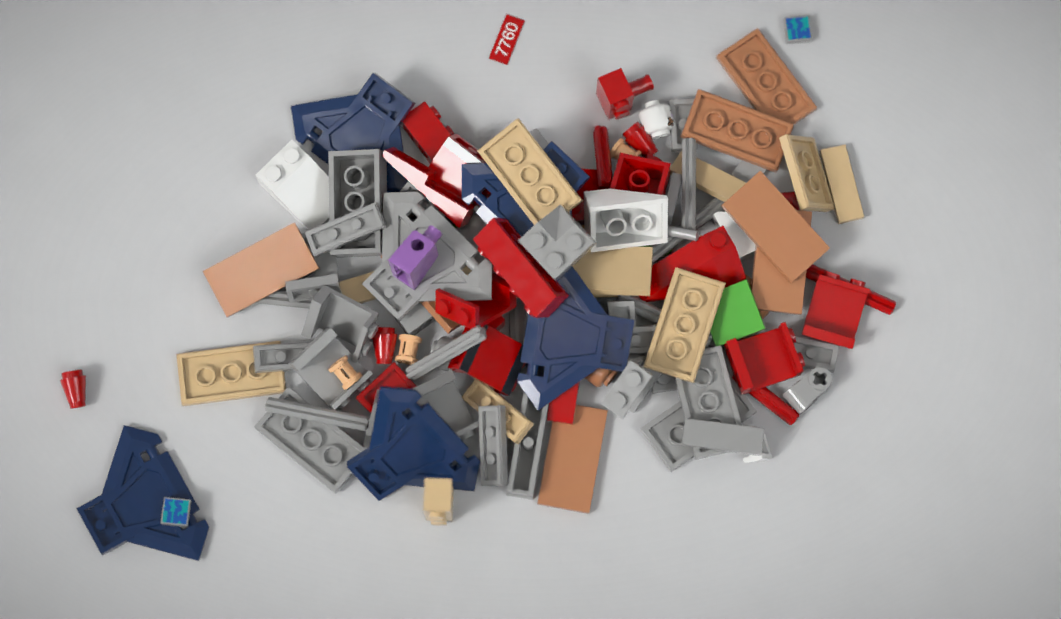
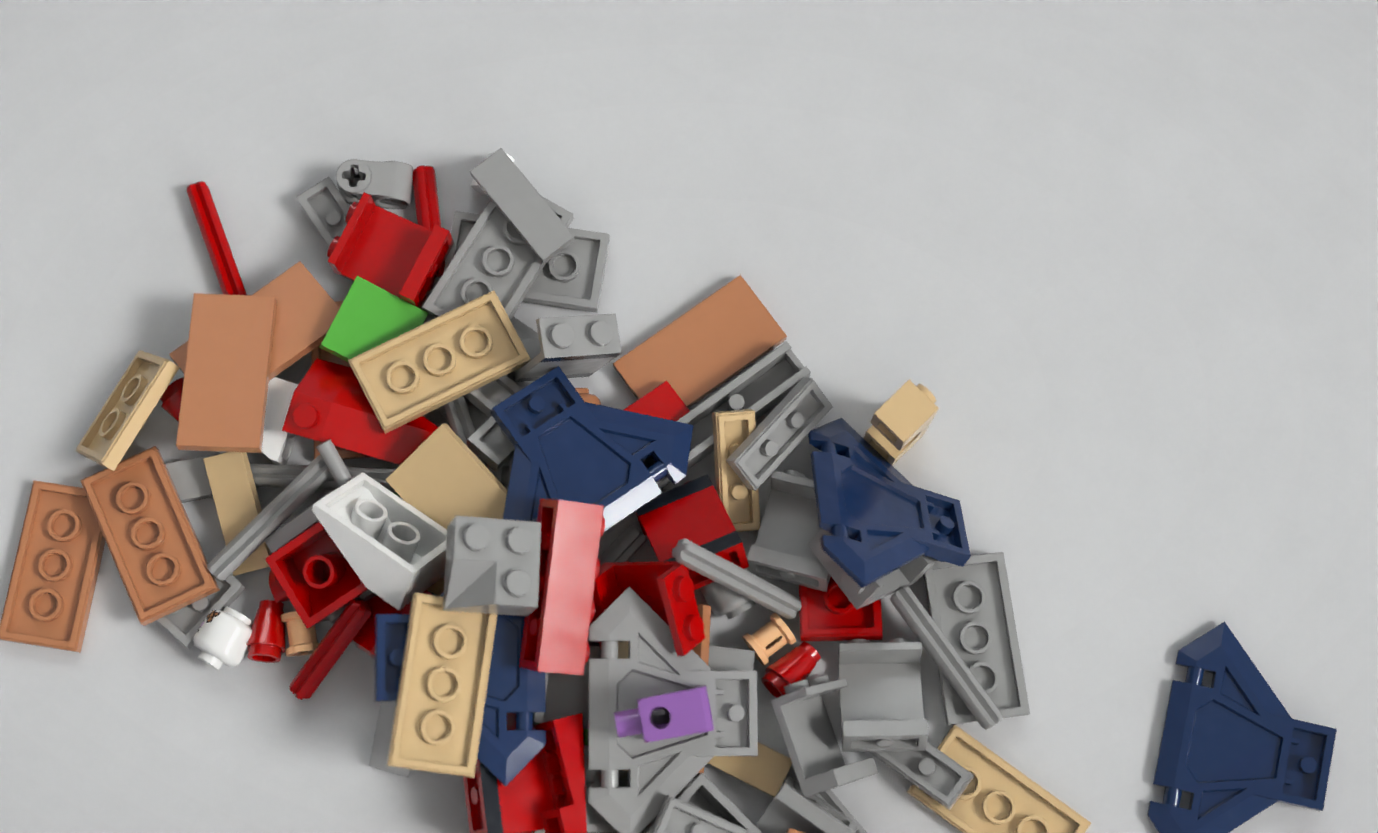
camera: 135 degrees left, 0 degrees up
(175, 512) = (1207, 697): tile -> none
(352, 377) = (869, 676): light nougat bush -> none
(618, 95) = (234, 706): red brick -> none
(835, 310) = (261, 236): red panel -> none
(841, 184) = (101, 369): tan tile -> none

